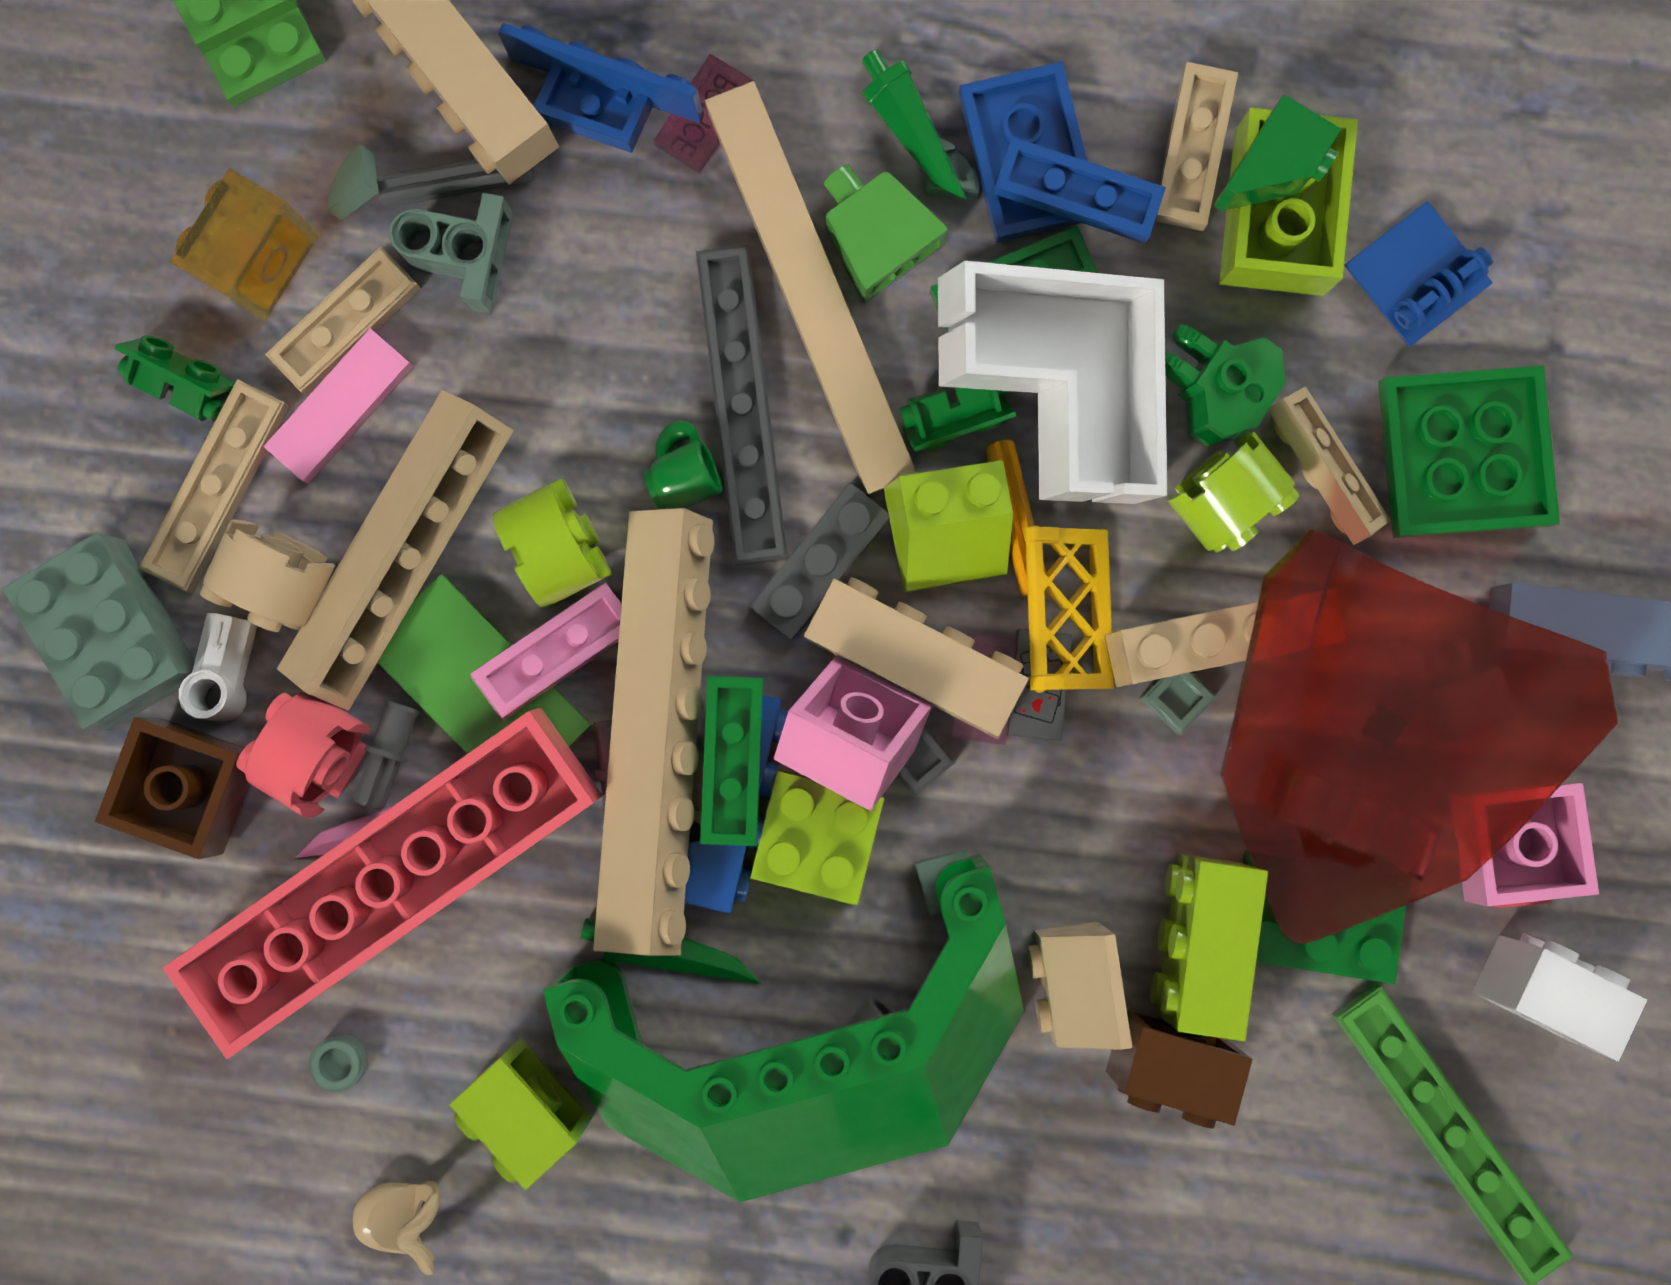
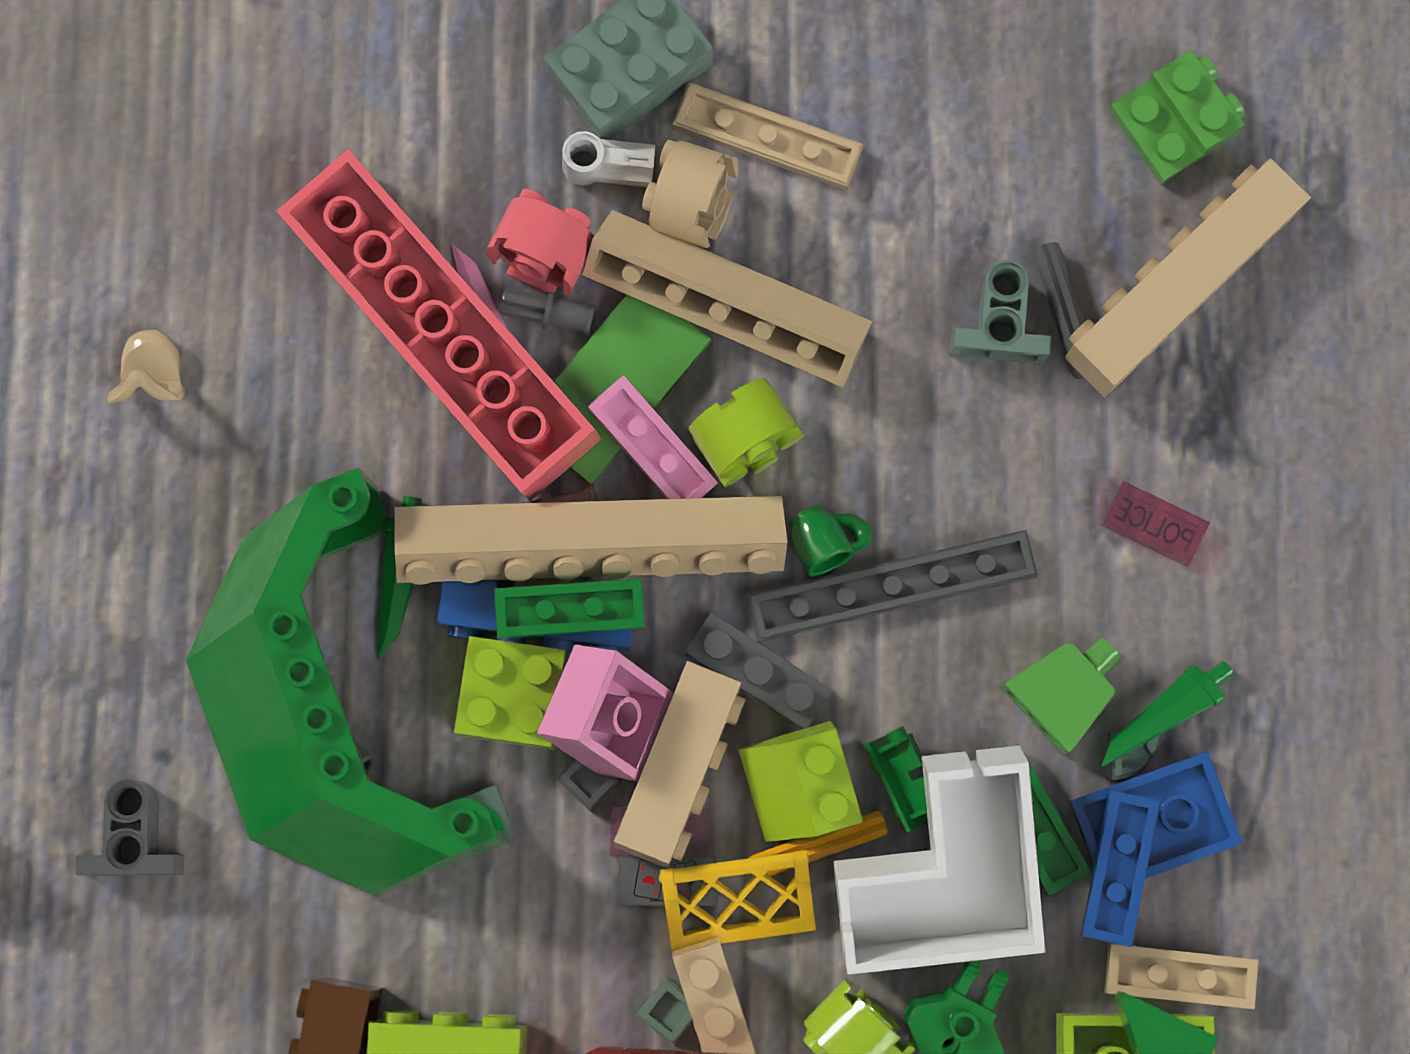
camera: 90 degrees right, 5 degrees down
(154, 365) = (868, 72): green hinge -> none
(175, 788) = (501, 139): reddish brown brick -> none
(244, 245) = (976, 138): clear yellow brick -> none
(338, 406) = (850, 233): bright pink tile -> none
(338, 1062) = (278, 301): sand green tile -> none
(341, 319) = (927, 228): tan tile -> none
(353, 183) = (1050, 222): sand green tile -> none
(521, 1115) = (249, 461): lime brick -> none
(595, 93) = (1154, 425): blue bracket -> none
(809, 287) = (1004, 635): tan tile -> none
(1080, 987) = (399, 939): tan slope -> none

